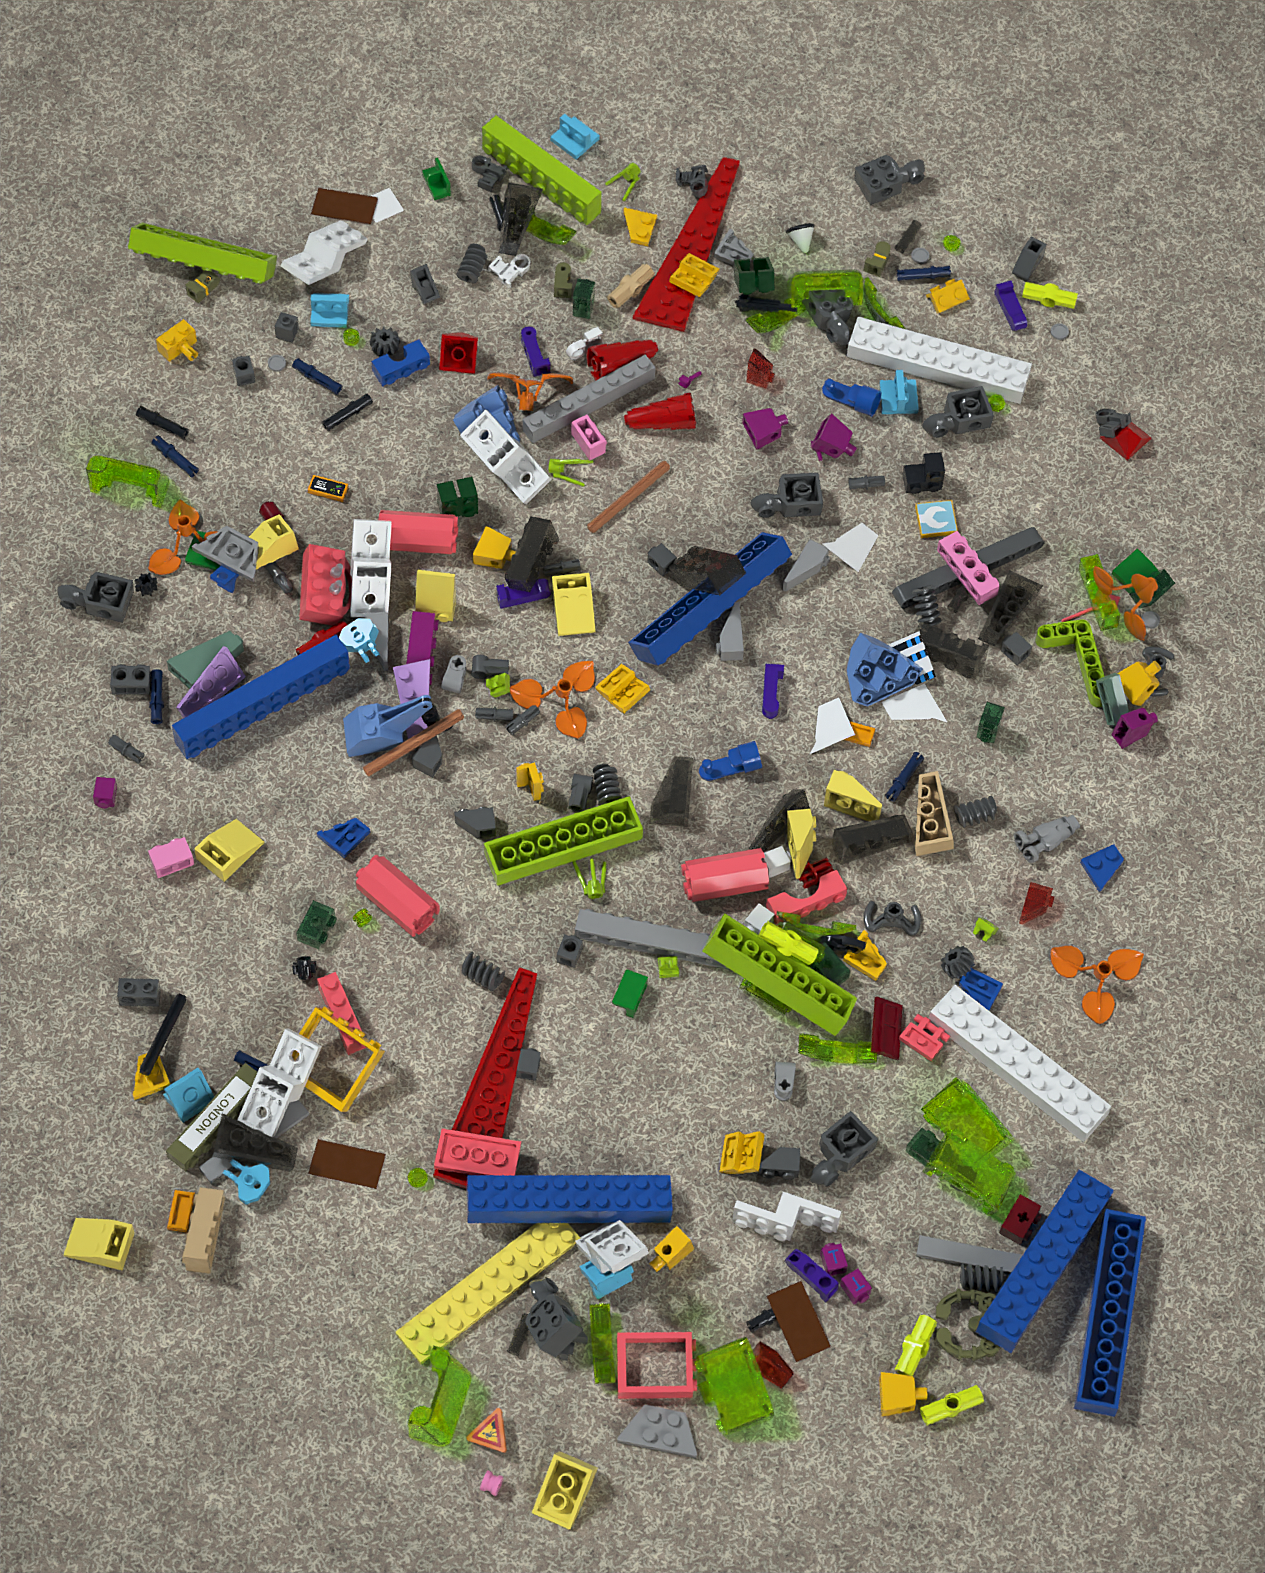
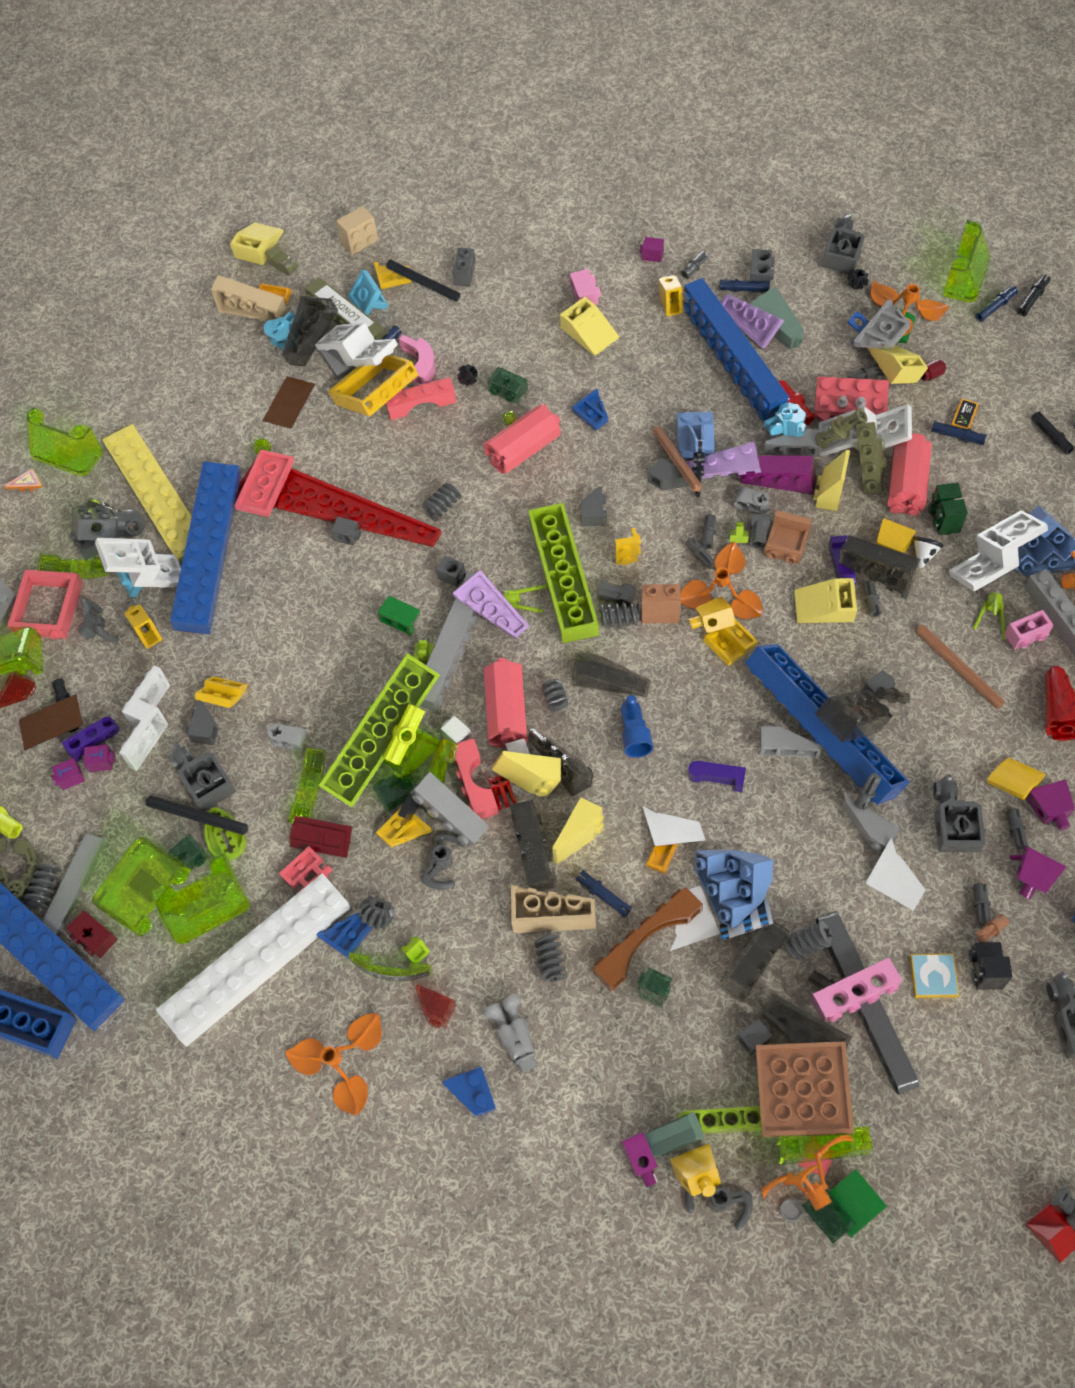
camera: 105 degrees right, 0 degrees up
(88, 1118) = (357, 230): none -> tan brick
(131, 1207) = (281, 260): none -> olive leg
(177, 766) = (670, 288): none -> yellow torso
(280, 1016) = (423, 352): none -> bright pink arch
(355, 485) = (960, 433): none -> dark blue pin
(377, 584) = (841, 427): none -> olive piece
(406, 560) = (871, 457): none -> olive bracket
(498, 641) = (788, 537): none -> nougat panel
(501, 520) = (926, 549): none -> white hat
(597, 741) = (661, 603): none -> nougat panel
(602, 698) = (713, 616): none -> yellow torso
(611, 903) = (488, 602): none -> lavender wing
(673, 545) = (892, 695): none -> clear smoke pin
(677, 1301) = (93, 623): none -> dark grey piece
(708, 833) = (555, 694): none -> dark grey gear
(744, 452) = (1015, 778): none -> yellow slope
(785, 558) = (867, 791): none -> dark grey axle
(791, 454) = (1017, 828): none -> dark grey axle
(849, 908) = (448, 809): none -> light grey brick
(884, 1146) = (197, 815): none -> black axle
(890, 473) = (992, 928): none -> nougat axle
(905, 1129) = (216, 842): none -> lime piece
(970, 758) = (678, 911): none -> dark orange arch
(1007, 925) = (415, 972): none -> clear neon green slope
(1061, 602) = (804, 1089): none -> nougat plate

